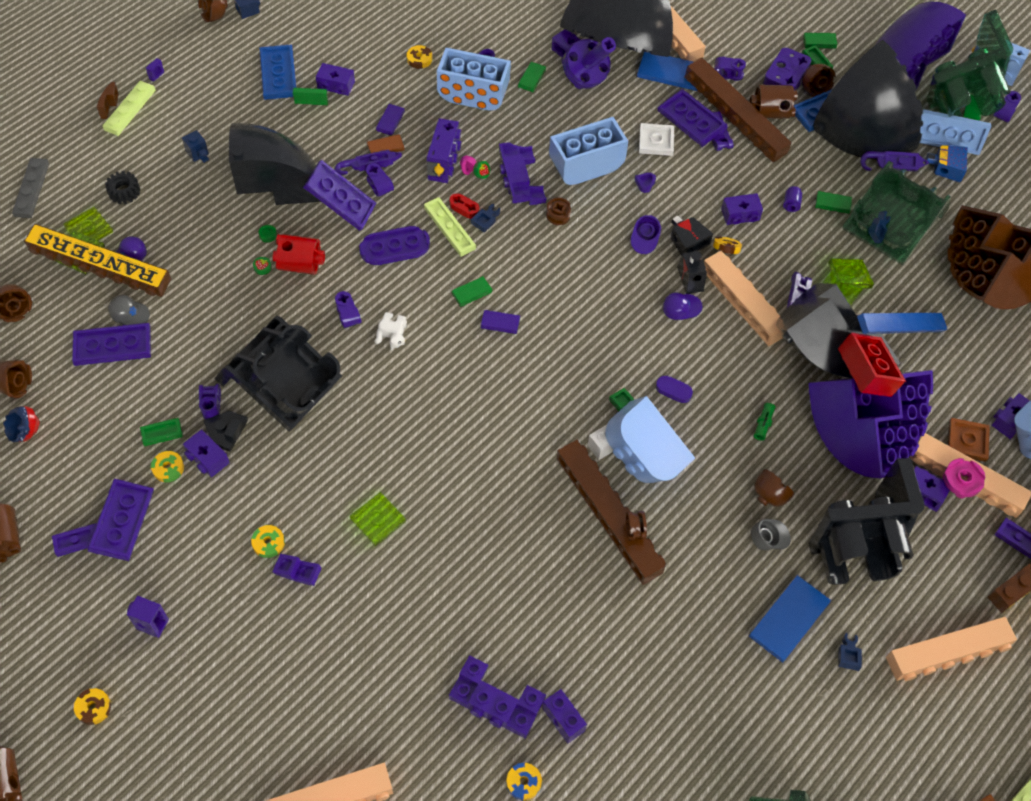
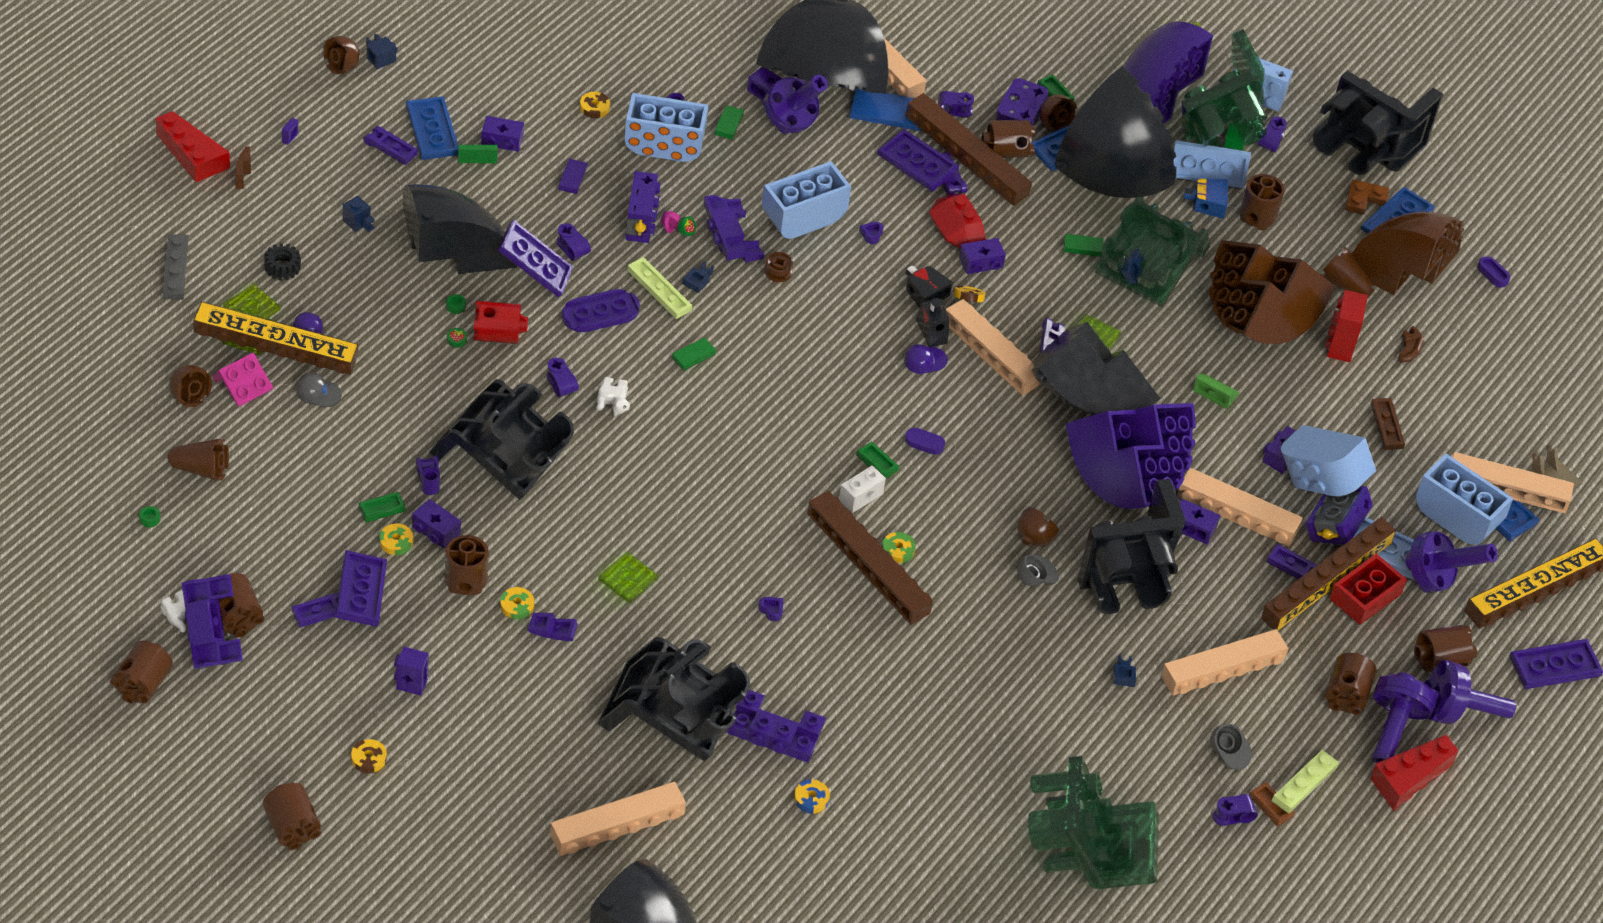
camera: 10 degrees left, 10 degrees down
(21, 424) = (232, 503): dark blue hair -> none
(63, 298) = (244, 379): none -> dark pink bracket
(69, 81) = (191, 147): none -> red wedge
(111, 344) = (307, 424): dark purple tile -> none
(129, 108) = (267, 175): yellowish green plate -> none
(221, 502) = (466, 565): none -> reddish brown cylinder
(225, 429) = (451, 497): black plate -> none
(239, 85) = (391, 145): none -> dark purple plate
(360, 163) = (551, 223): dark purple plate -> none
(390, 143) = (572, 205): dark orange tile -> none
(398, 666) = (677, 694): none -> black piece
(464, 205) = (671, 265): red beam -> none
(500, 321) = (729, 383): dark purple tile -> none
(510, 559) = (771, 607): none -> dark purple tile
(564, 716) = (845, 737): dark purple brick -> none
(636, 525) = (899, 562): reddish brown wheel -> none
(641, 492) = (901, 540): none -> piece
(645, 234) = (878, 286): dark purple cap -> none
(647, 442) = (902, 487): light blue brick -> none
(656, 139) = (880, 185): white plate -> none
(722, 174) = (957, 220): none -> red wedge
(761, 431) = (1021, 475): green pin -> none
(789, 618) = (1062, 645): blue tile -> none
(793, 199) = (1038, 243): dark purple brick -> none
(821, 40) = (1058, 68): green tile -> none
(851, 273) = (1106, 317): clear neon green tile -> none
(871, 365) = (1127, 395): red brick -> none
(900, 160) = (1164, 197): dark purple plate -> none
(901, 323) = (1160, 358): blue tile -> none
(949, 350) = (1214, 390): none -> bright green panel
(955, 749) = (1231, 746): none -> dark grey cap
(963, 488) = (1229, 515): dark pink plate -> none
(969, 438) = (1239, 472): dark orange plate -> none
(998, 168) = (1262, 201): none -> reddish brown cylinder

